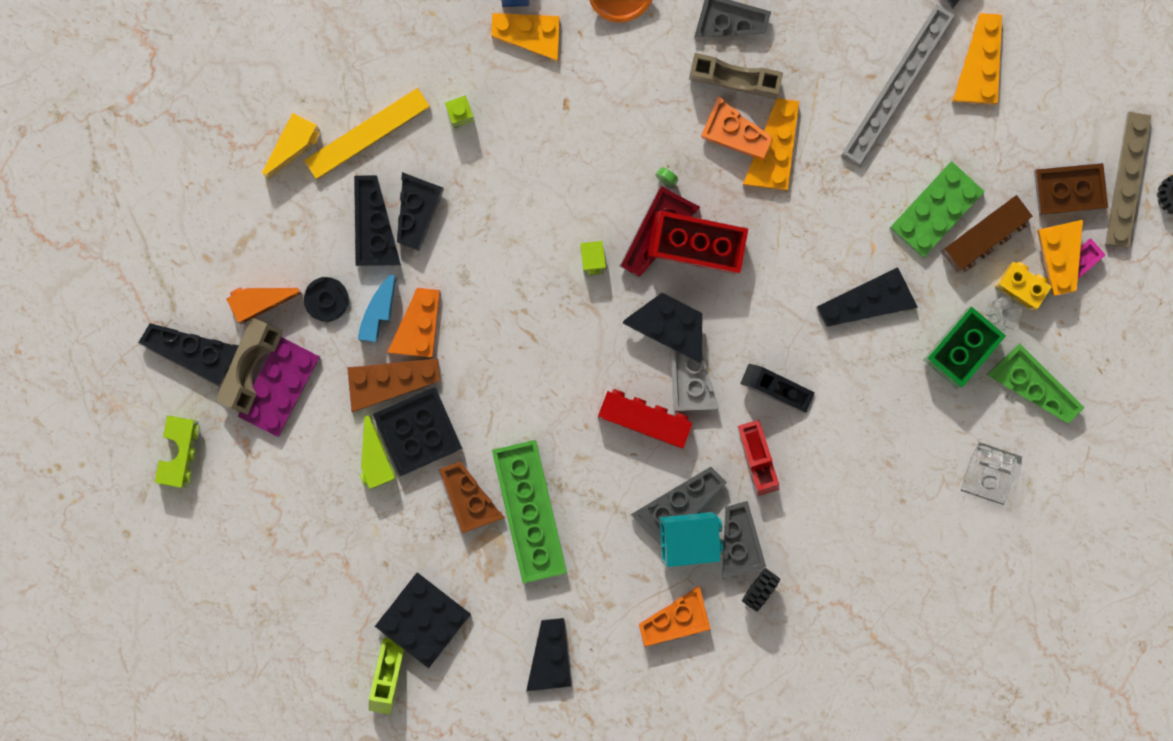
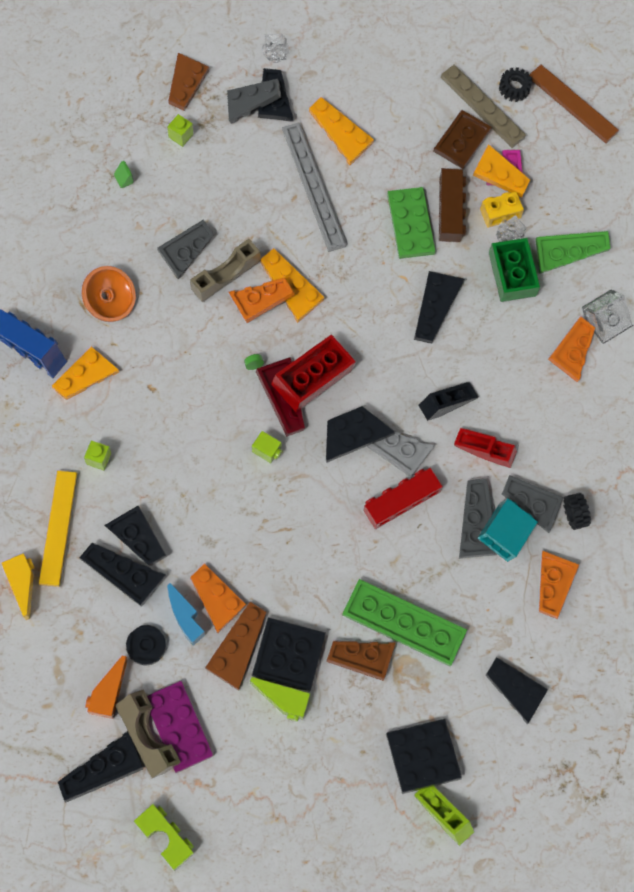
camera: 55 degrees left, 15 degrees down
(929, 465) = (572, 350): none -> orange wing

